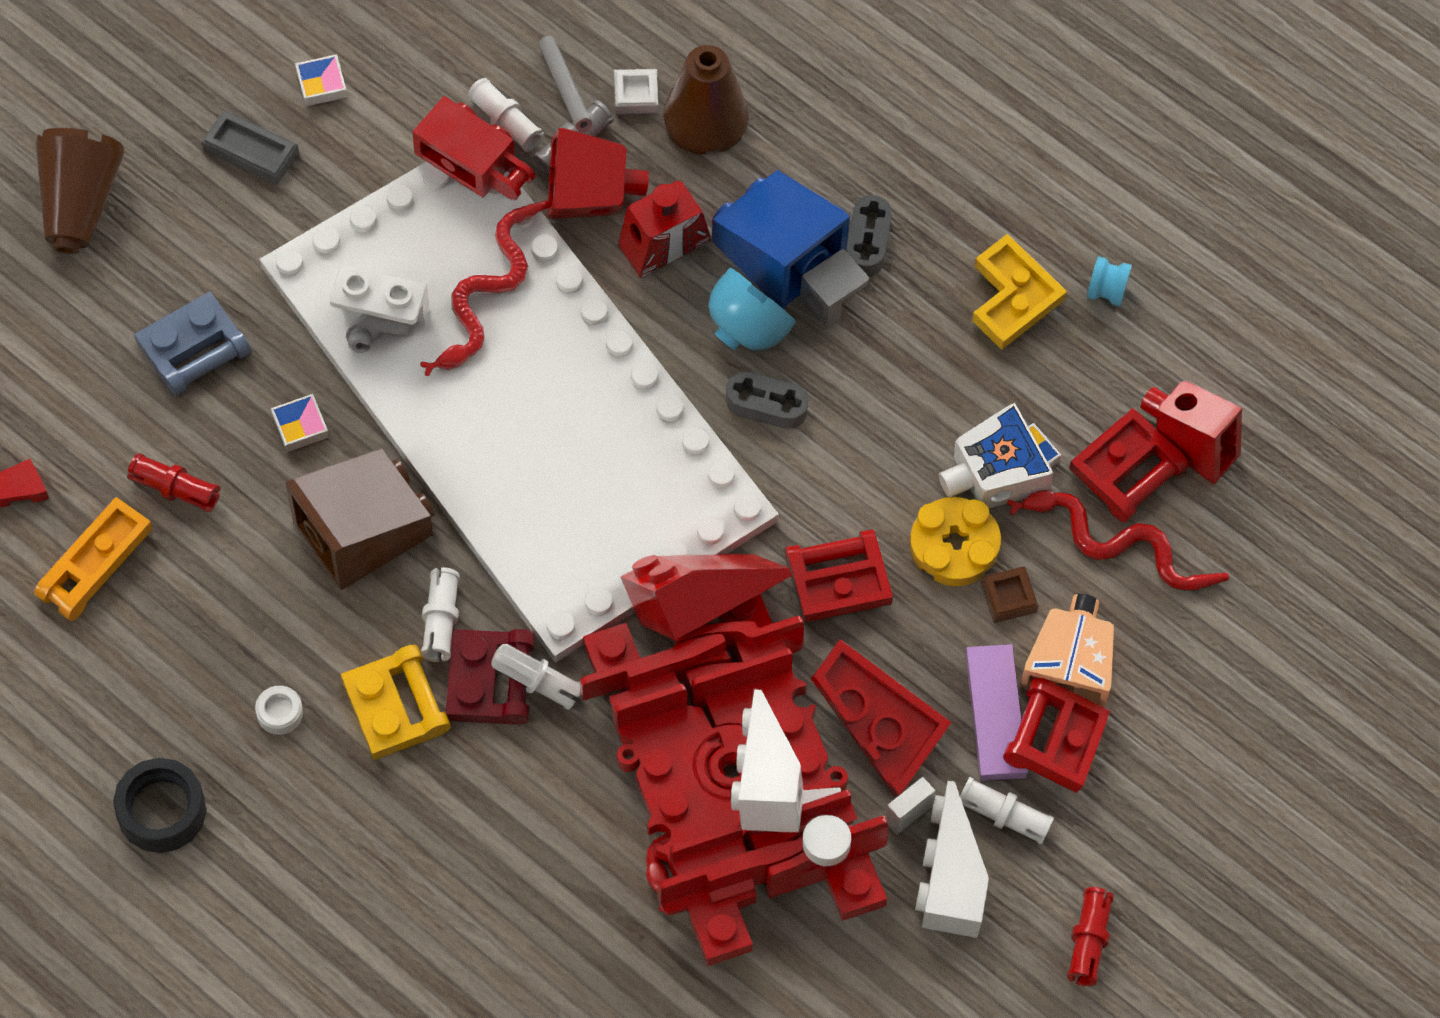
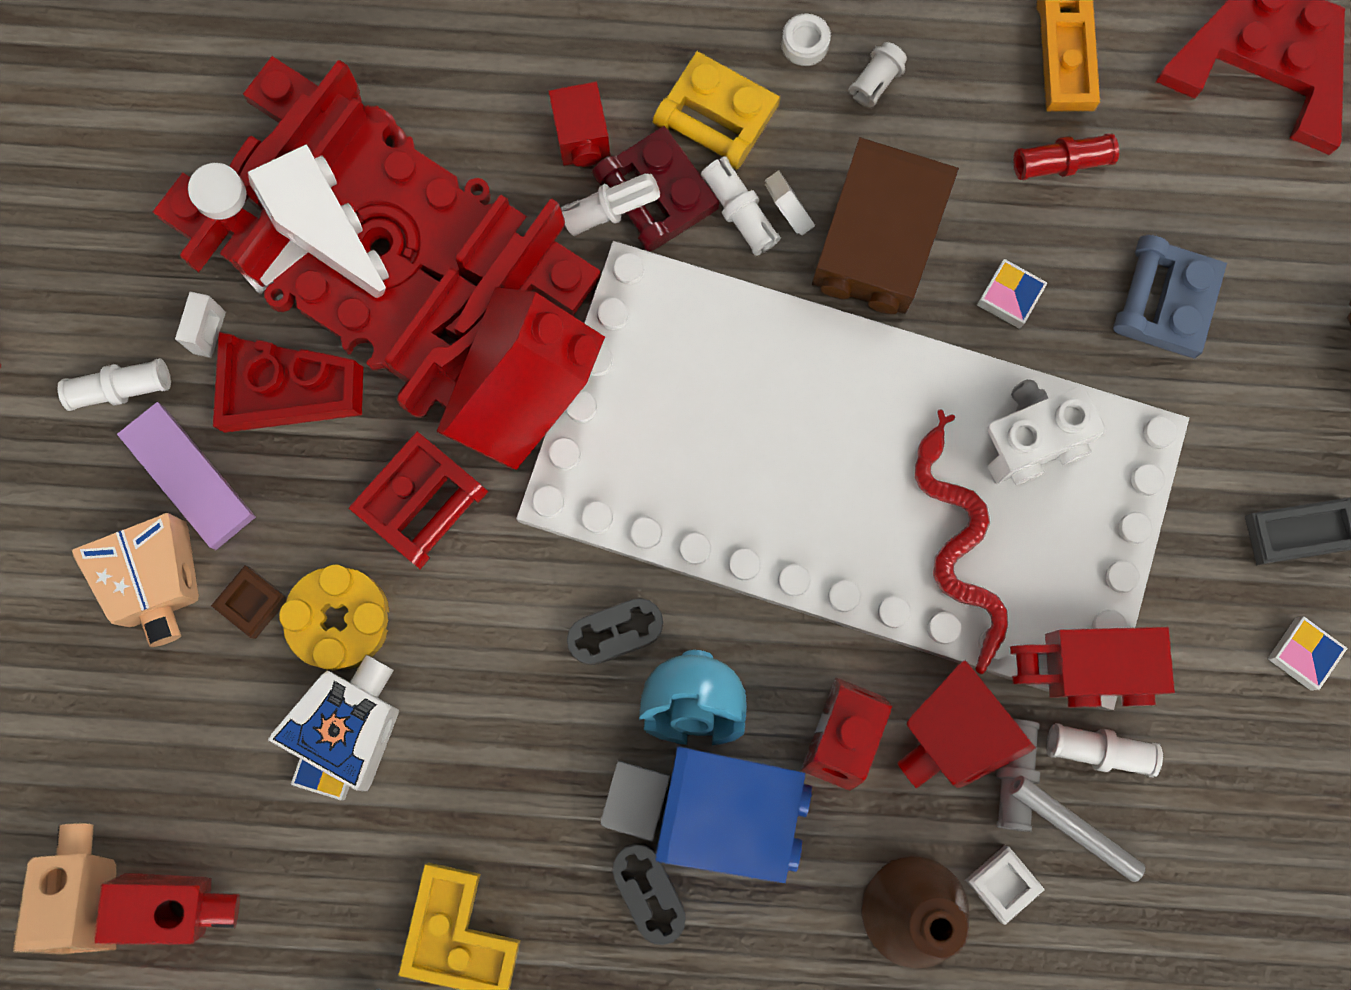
camera: 145 degrees right, 15 degrees up
(252, 639) = (885, 65): none -> white pin
(402, 594) = (789, 203): none -> white tile
(509, 755) = (580, 124): none -> red brick
(958, 877) = (110, 278): white slope -> none
(1045, 501) = (175, 737): red animal -> none
(1070, 741) = (90, 483): red plate -> none
(1118, 454) = (232, 826): red plate -> none
(1254, 472) = (64, 896): none -> light nougat torso

